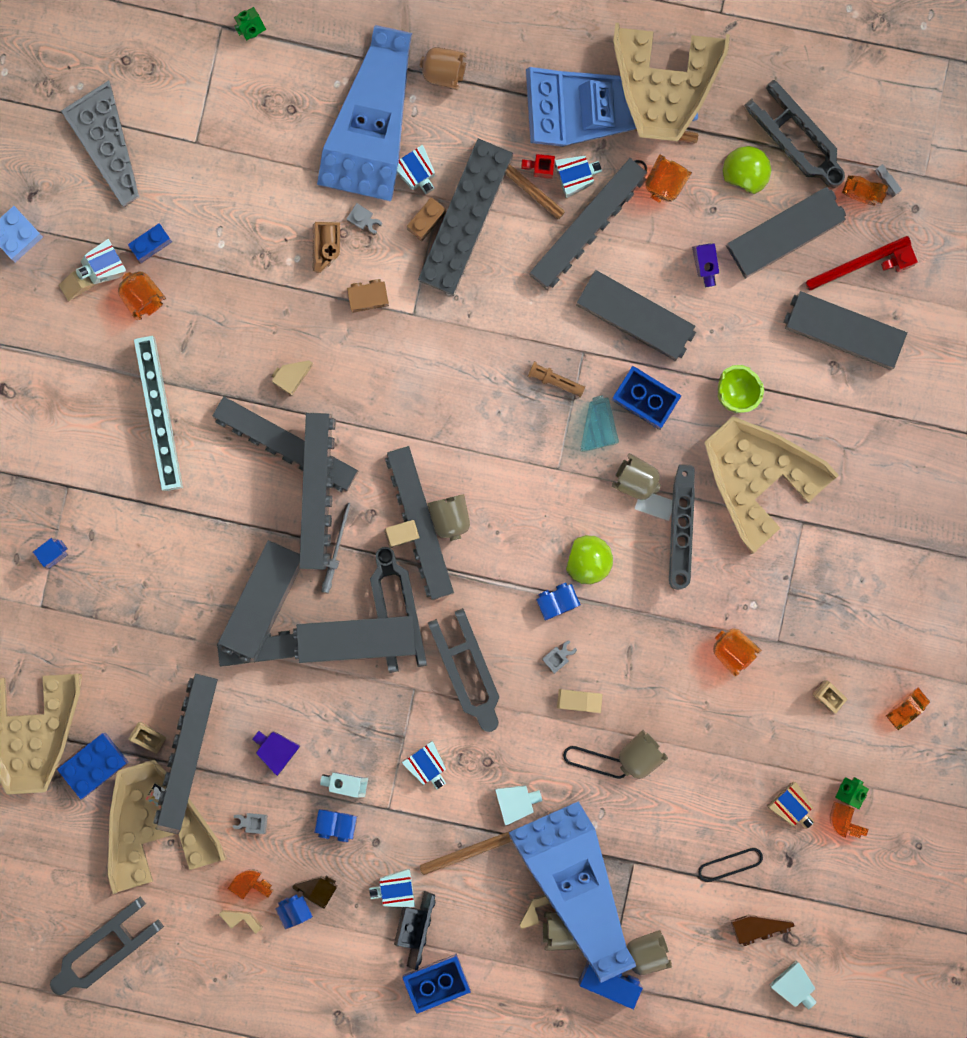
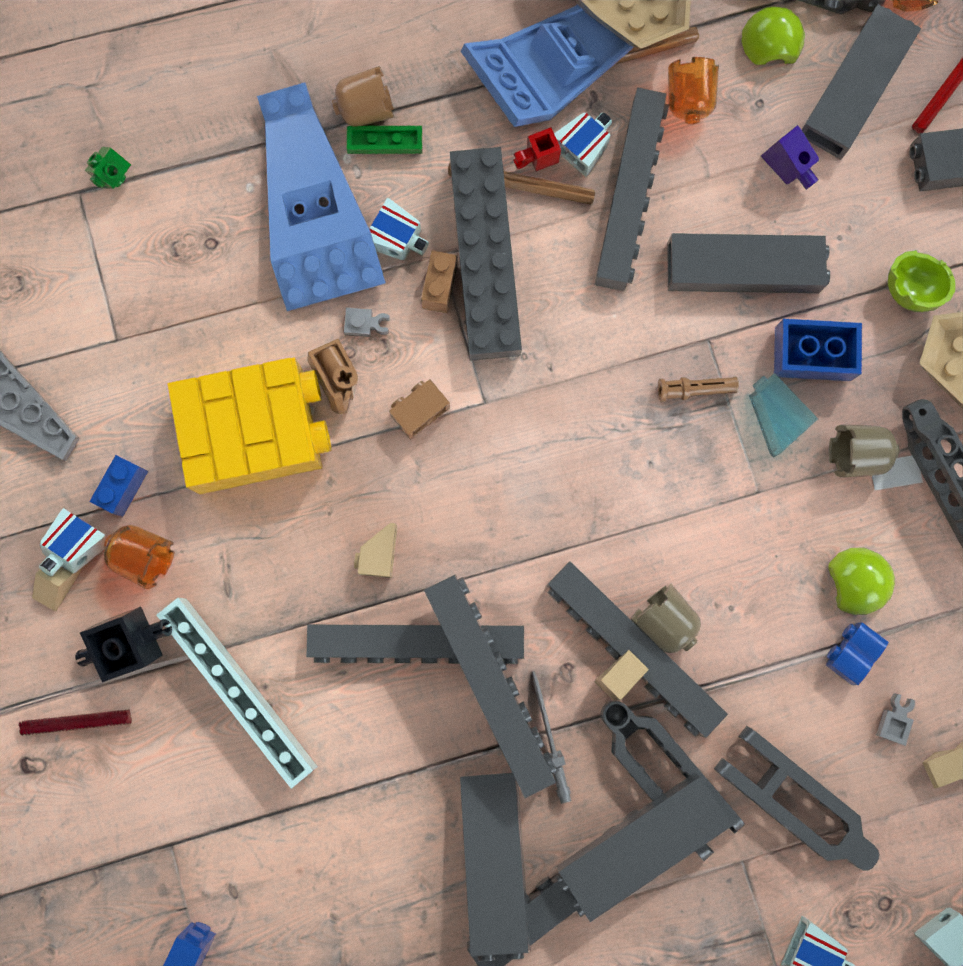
camera: 25 degrees left, 5 degrees down
(47, 379) = (75, 722): none -> dark red axle
(103, 345) = (122, 644): none -> black brick
(253, 249) = (248, 425): none -> yellow brick
(443, 101) = (384, 140): none -> green plate

